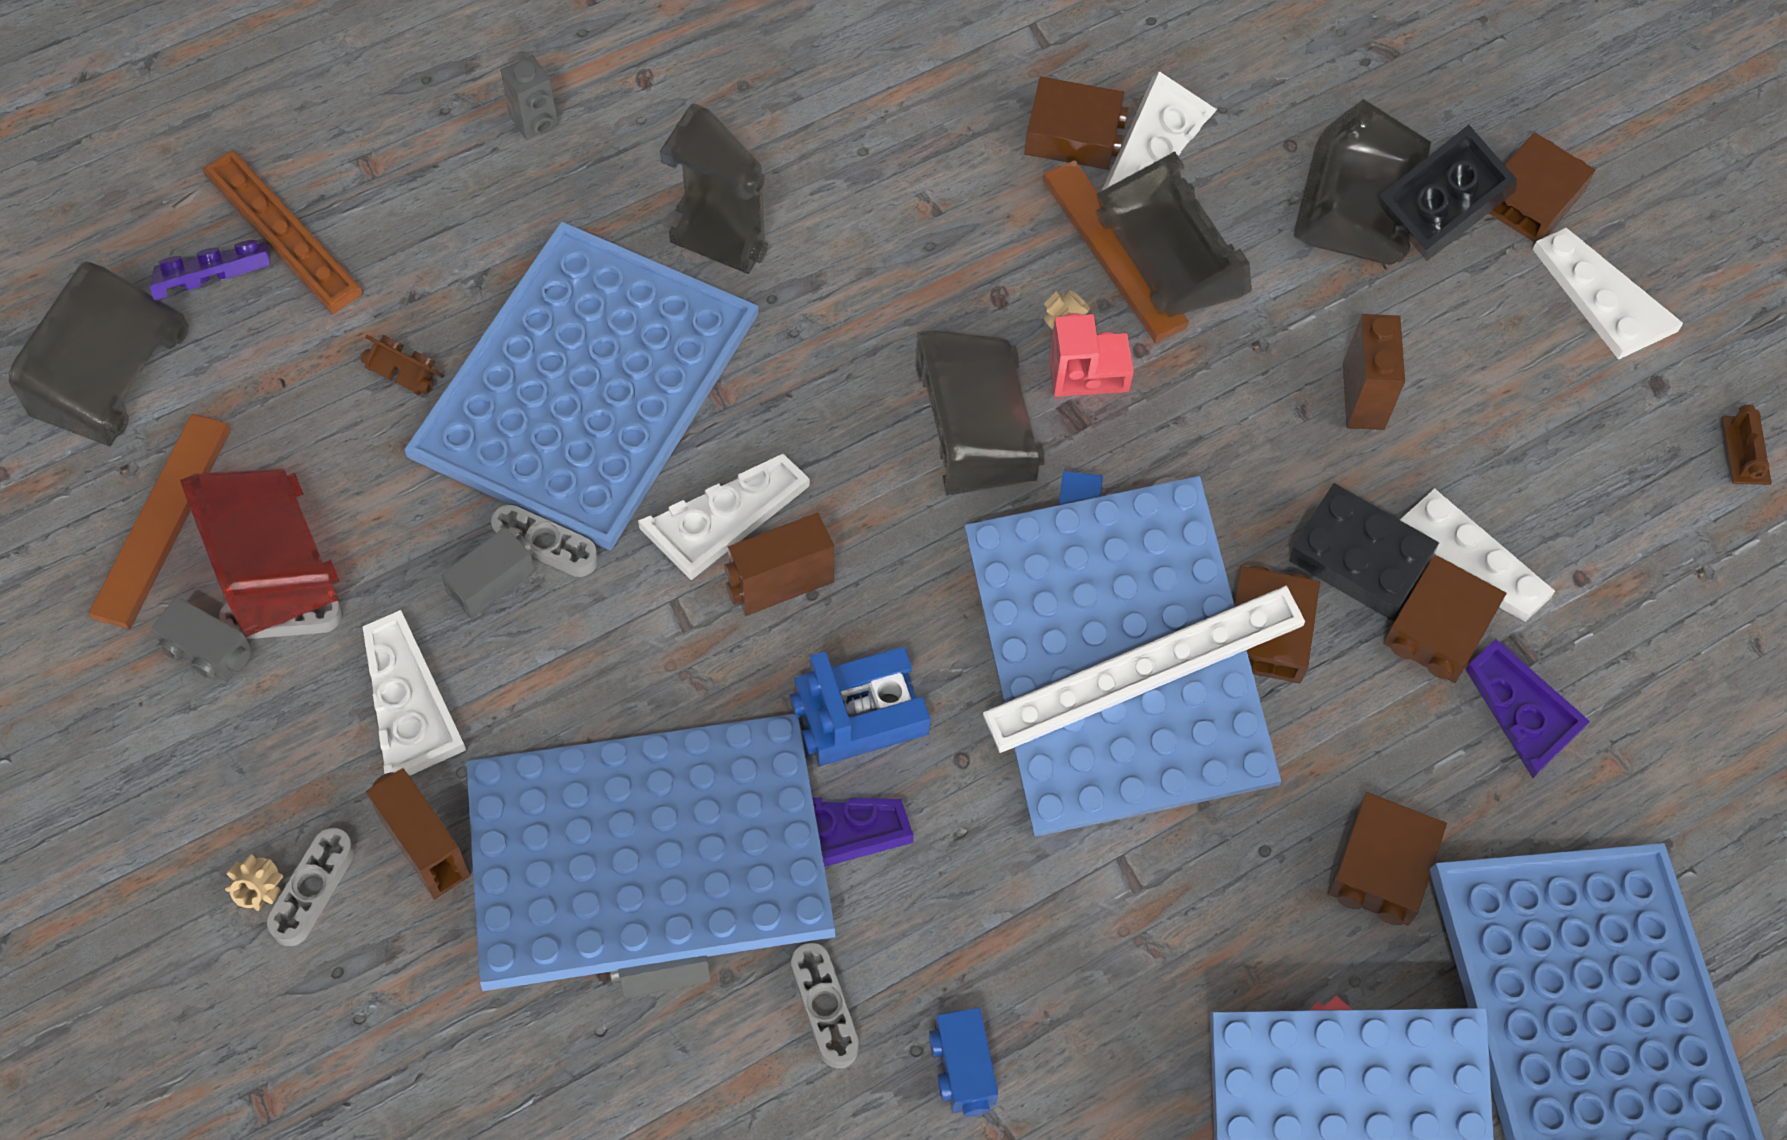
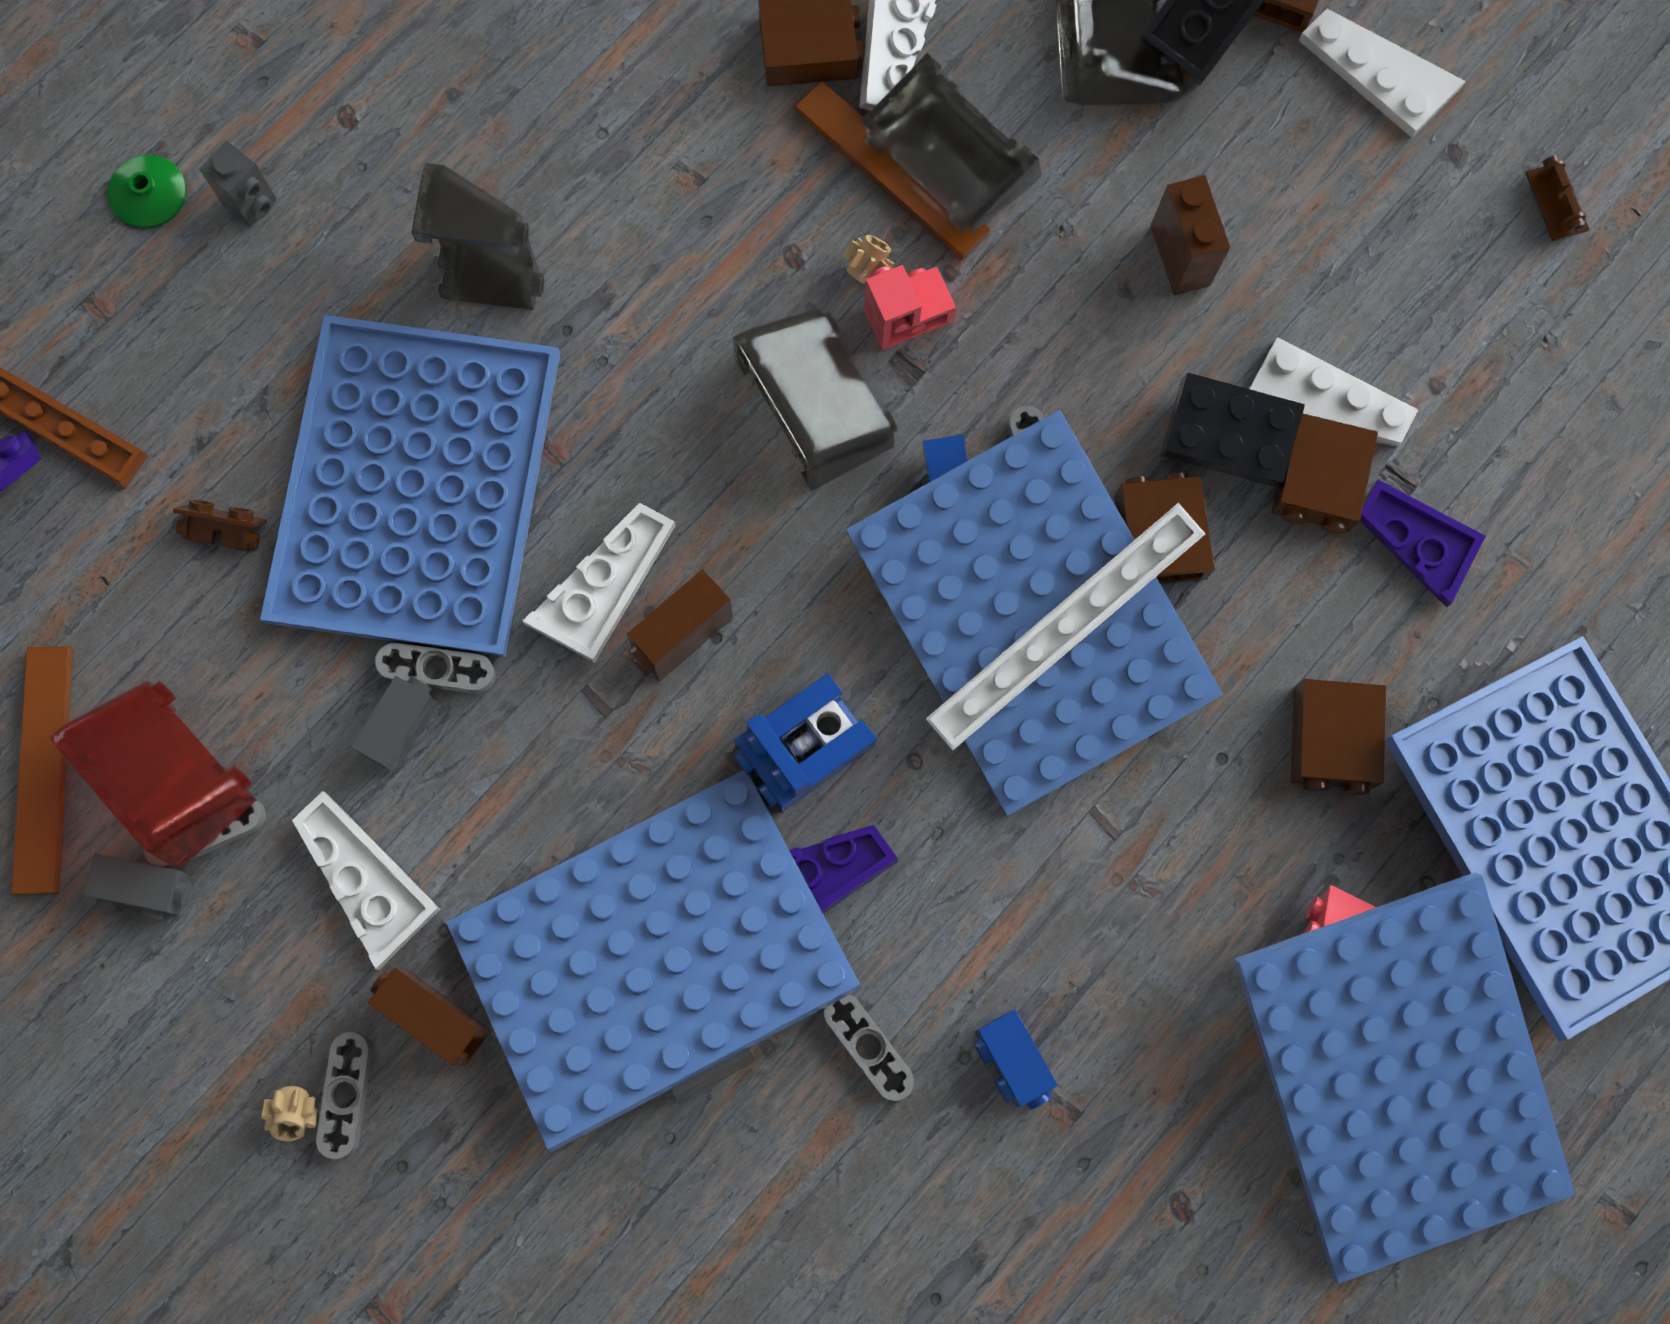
camera: 20 degrees left, 15 degrees up
(449, 88) = (153, 204): none -> green dish

